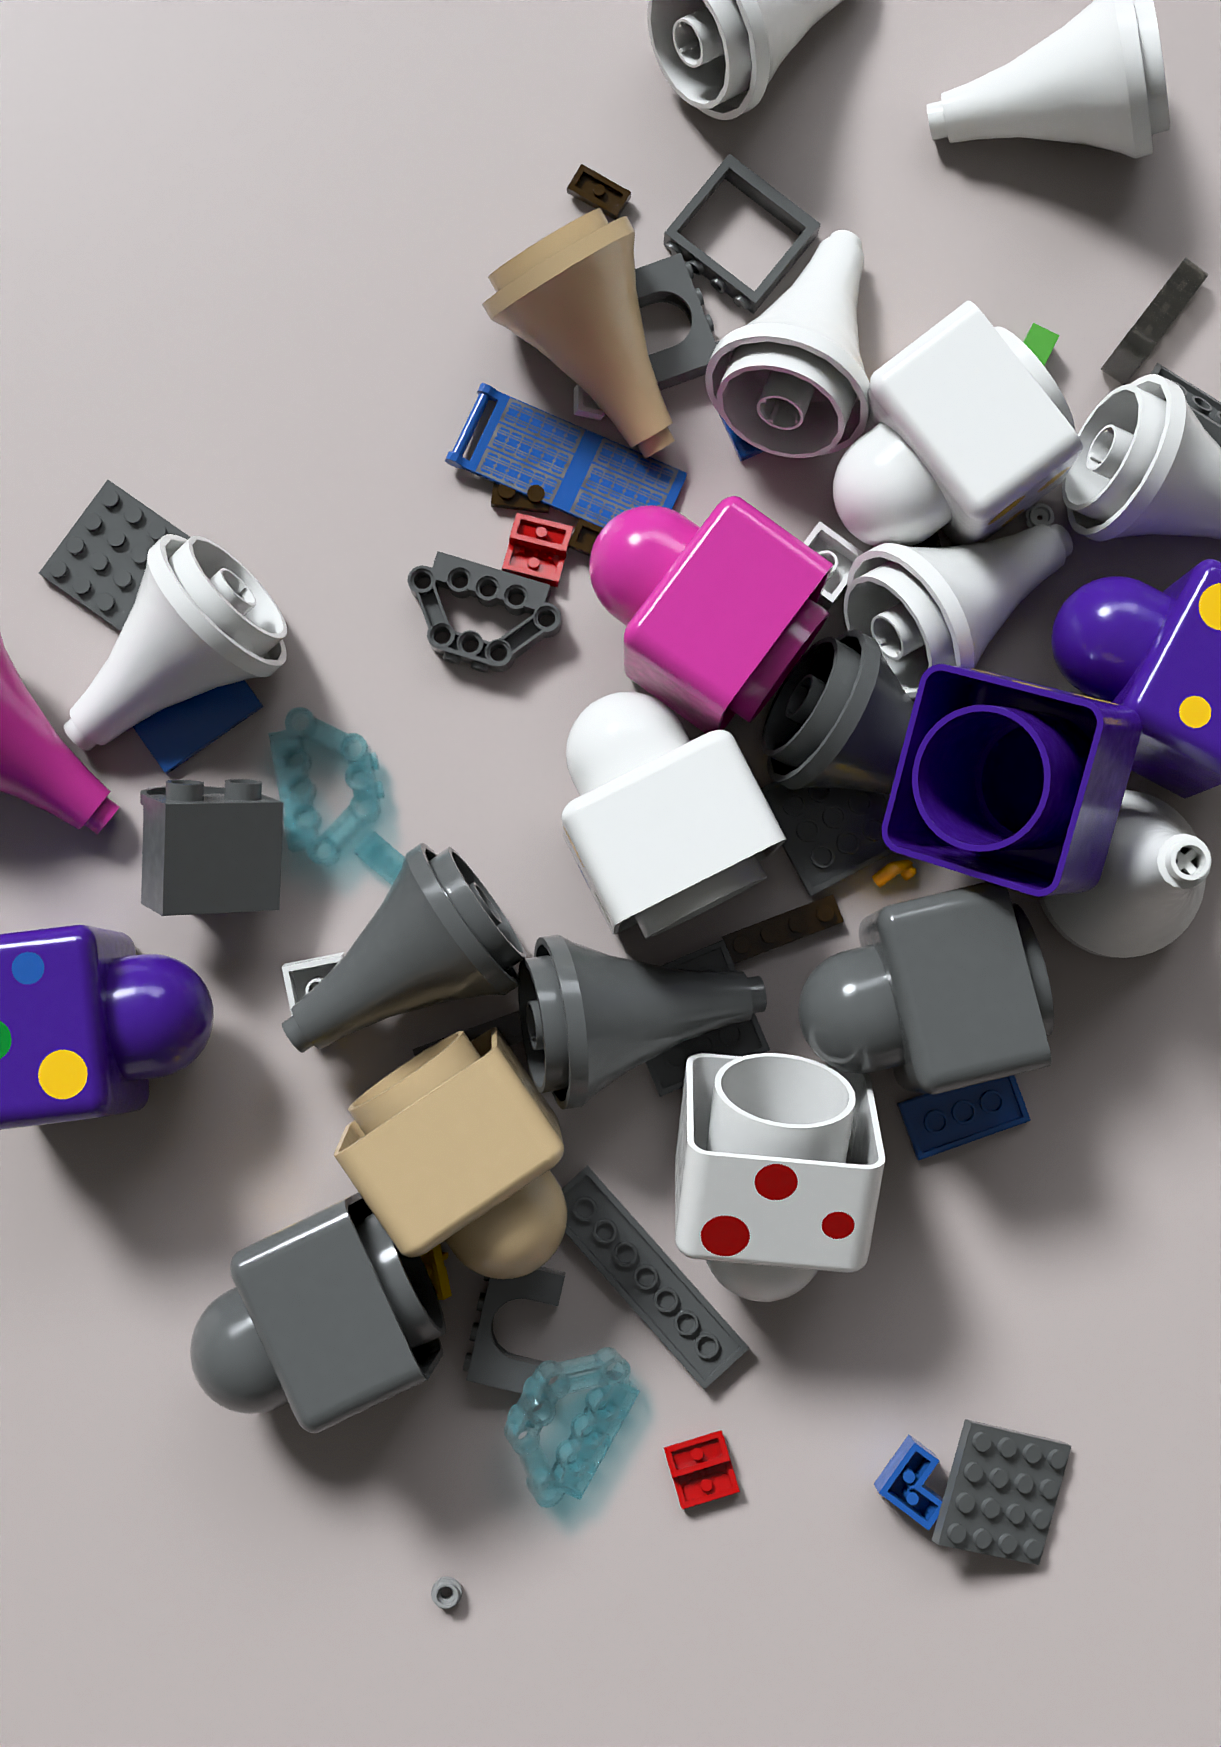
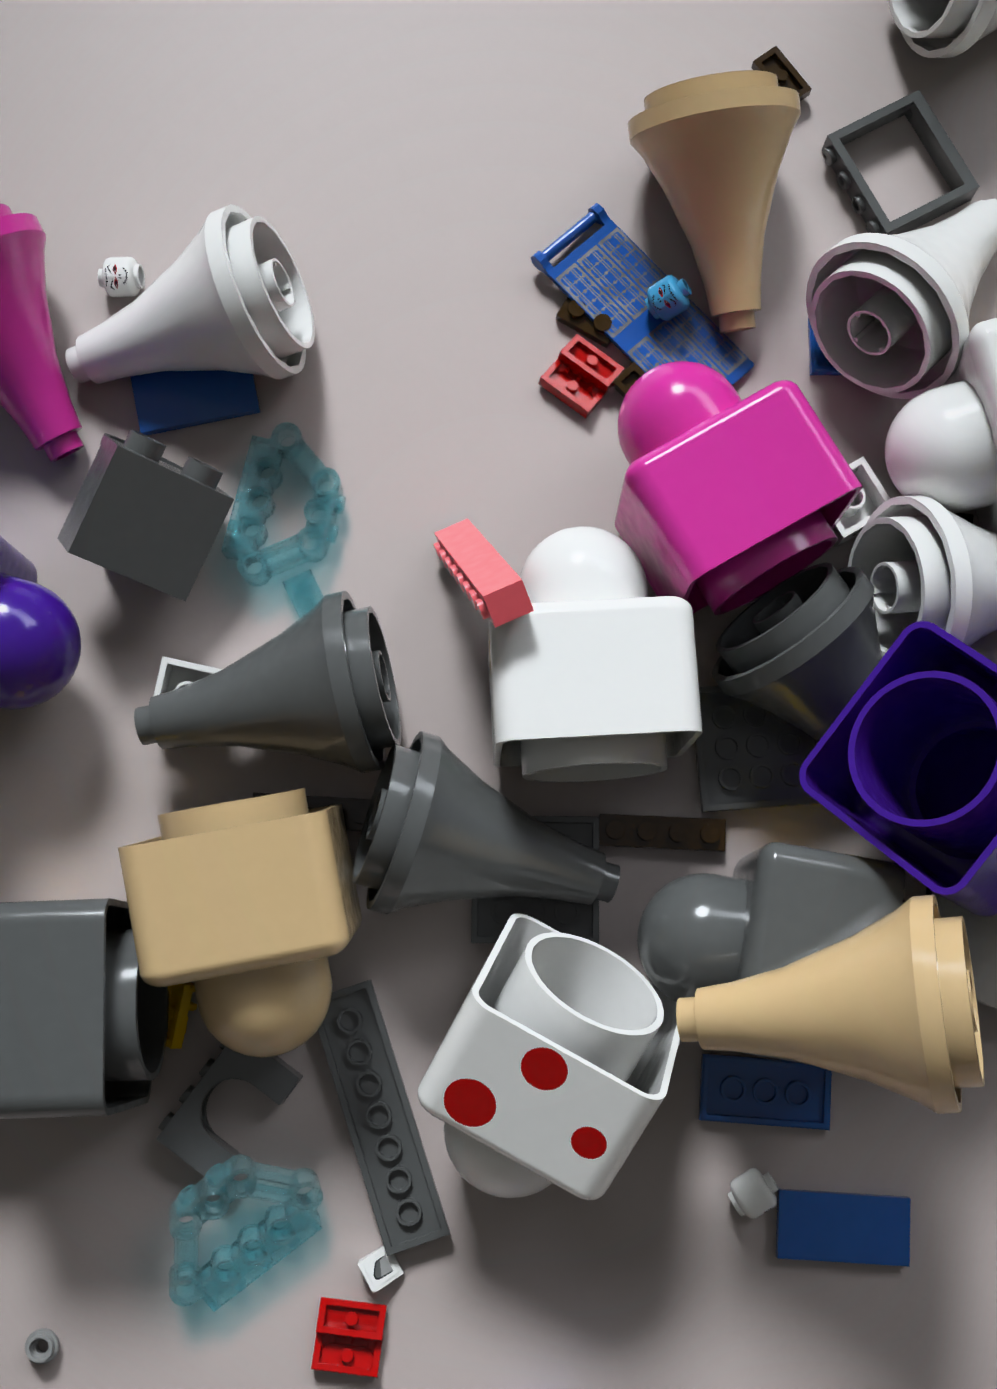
camera: 25 degrees right, 5 degrees down
(81, 636) = (121, 276): none -> white head
(108, 553) = (173, 209): dark grey plate -> none
(515, 642) = (522, 450): dark grey brick -> none
(534, 778) = (482, 573): none -> coral brick
(585, 405) = (685, 262): white plate -> none
(585, 447) = (668, 298): none -> dark azure head
(671, 283) = (814, 185): dark grey arch -> none
(702, 1402) = (379, 1269): none -> white slope
(892, 869) = (794, 821): light orange arm -> none
(989, 1201) = (753, 1193): none -> white head
(1027, 1013) = (874, 1007): none -> tan piece
(1075, 1196) = (843, 1227): none -> blue tile

